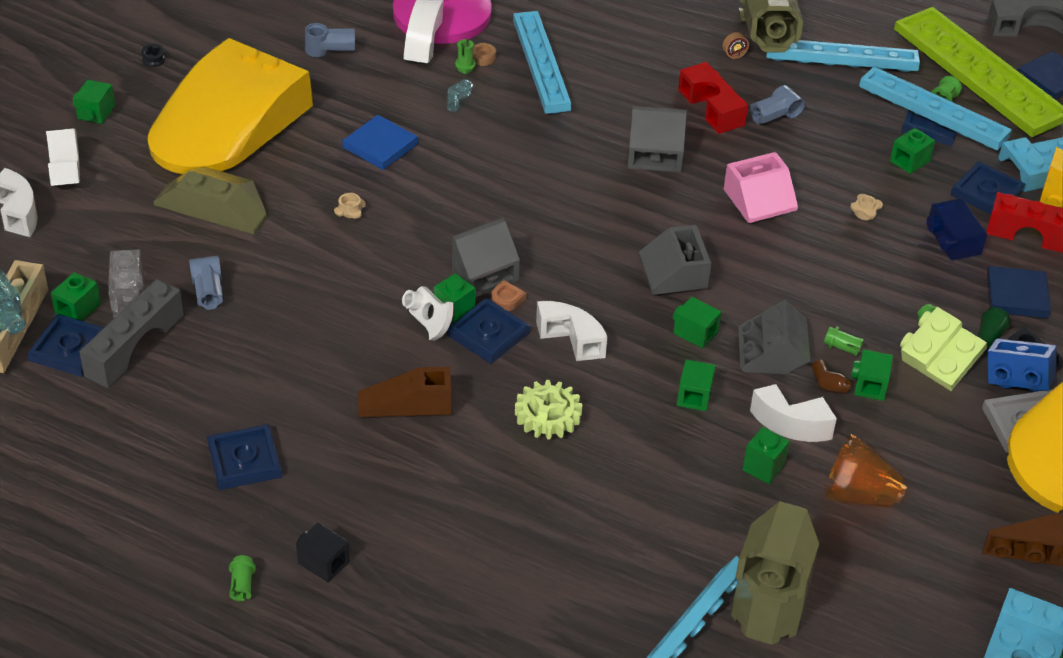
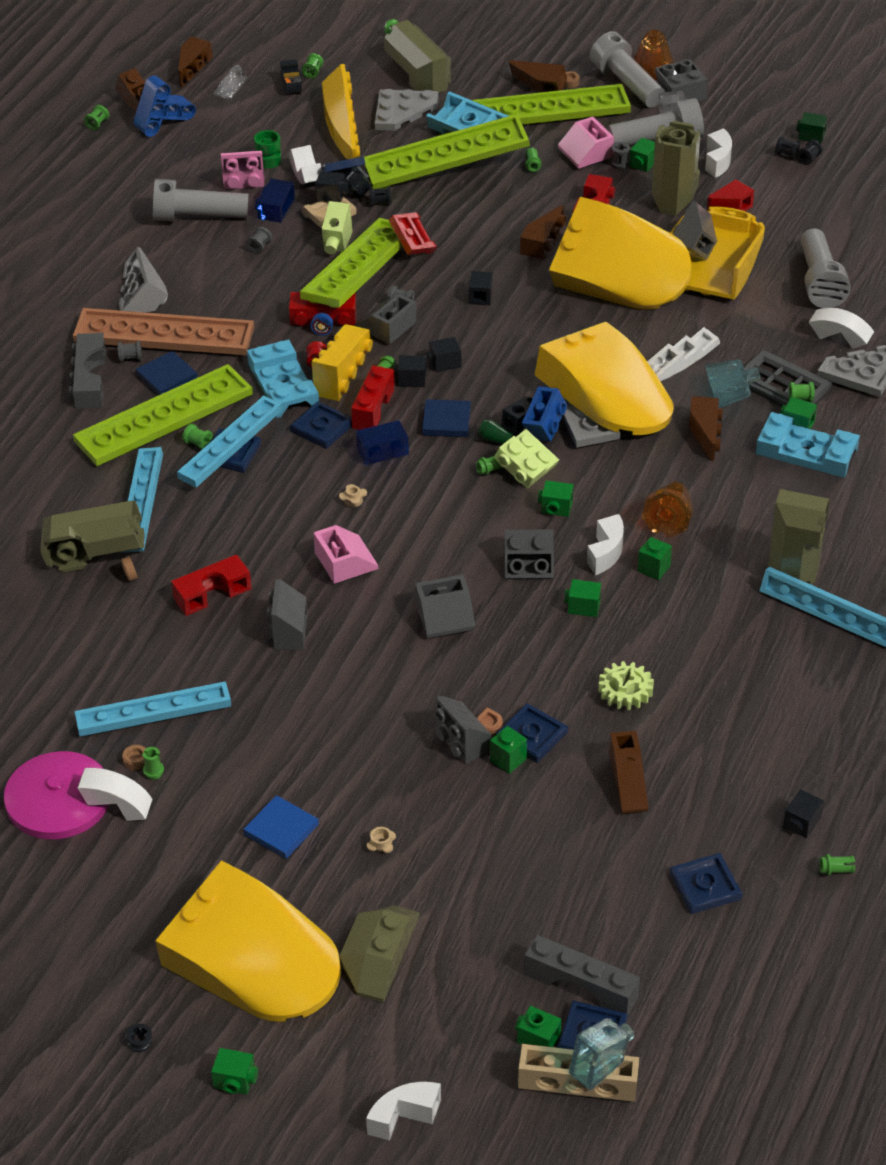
camera: 90 degrees left, 0 degrees up
(64, 157) = (322, 1084): white brick -> none
(125, 279) = (515, 991): clear brick -> none
(207, 278) = (493, 935): sand blue piece -> none
(320, 39) = (120, 879): sand blue piece -> none
(418, 306) = (538, 762): white piece -> none
(457, 93) = (203, 773): clear light blue arm -> none
(563, 319) = (533, 667): white brick -> none
(696, 322) = (512, 597): green brick -> none
(782, 102) = (219, 540): sand blue piece -> none
(830, 380) = (562, 525): reddish brown arm -> none
(843, 341) = (517, 518): bright green pin -> none
(912, 150) = (282, 461): green brick -> none

